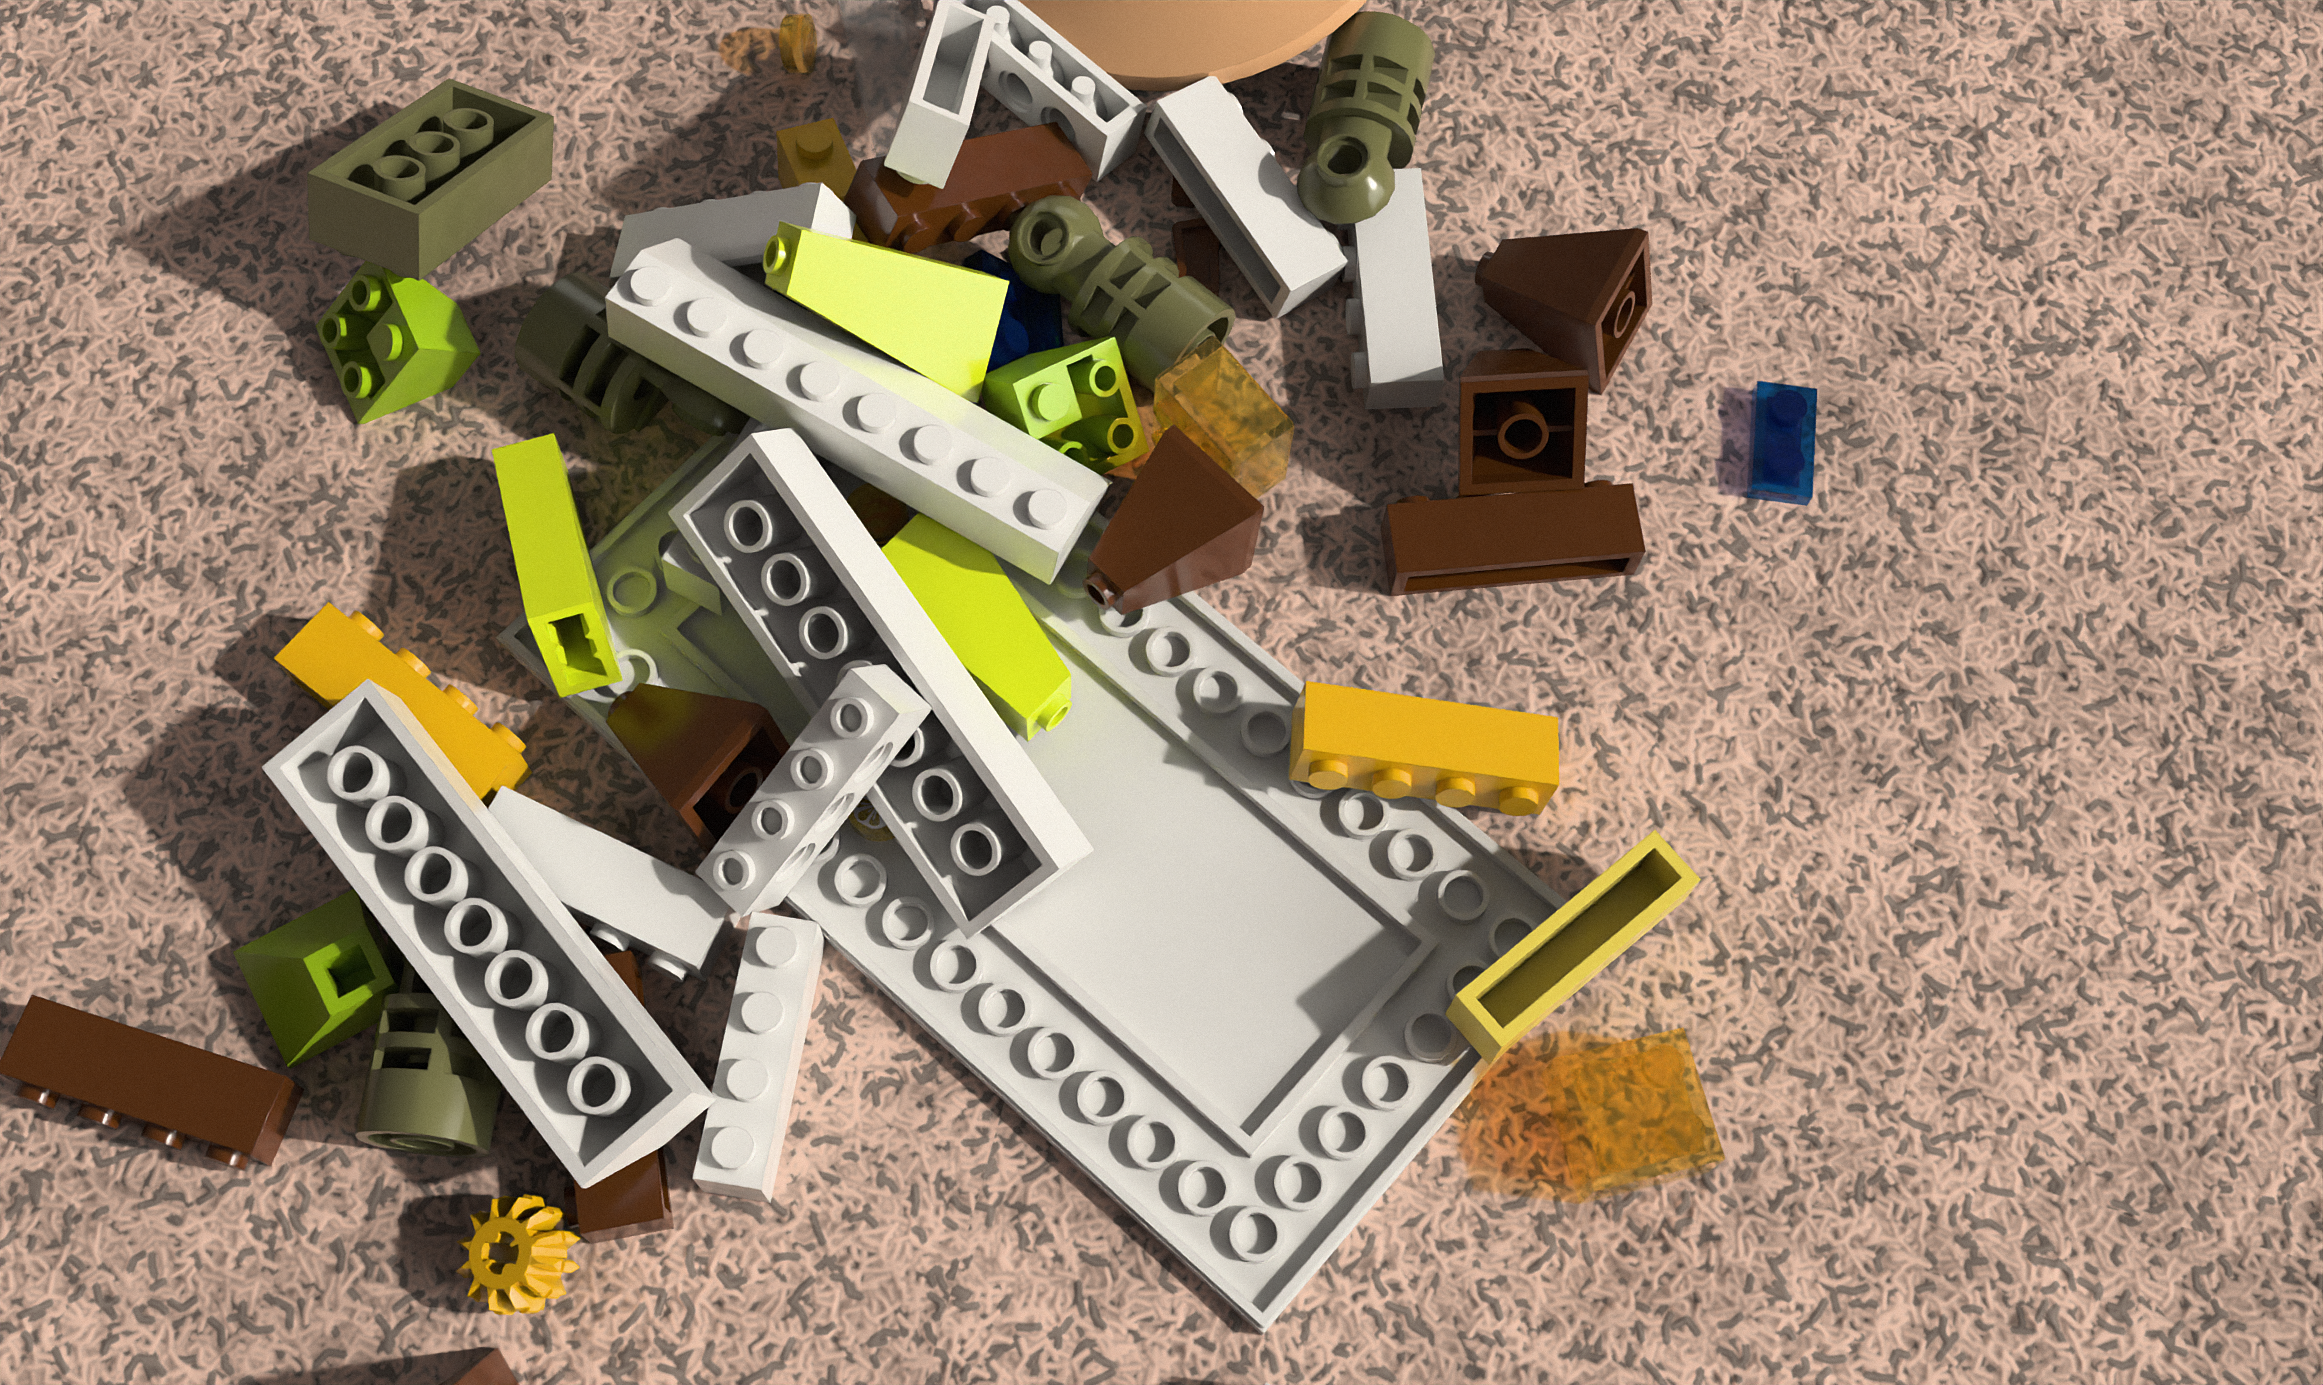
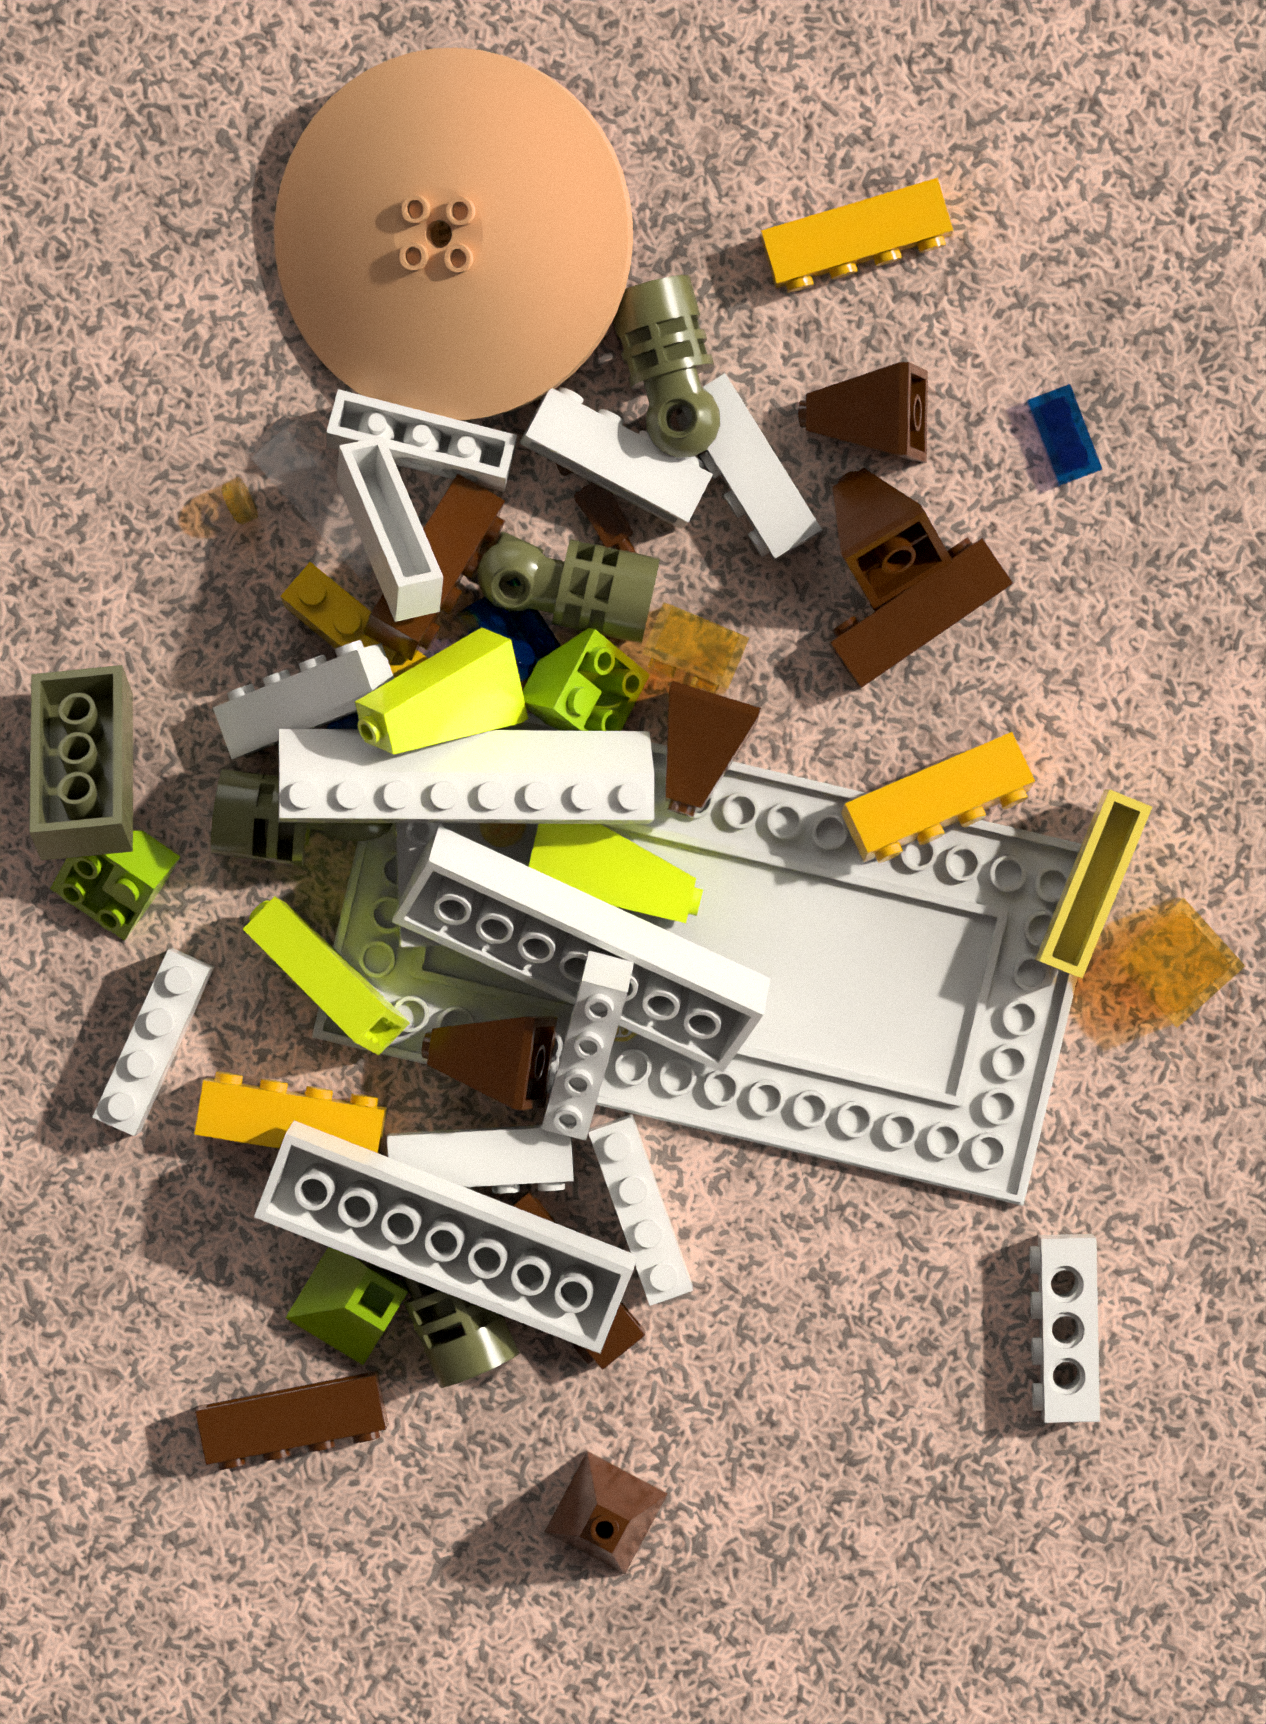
camera: 25 degrees left, 20 degrees up
(304, 538) = (153, 1042): none -> white brick
(515, 1280) = (563, 1410): yellow gear -> none
(1646, 119) = (857, 233): none -> yellow brick

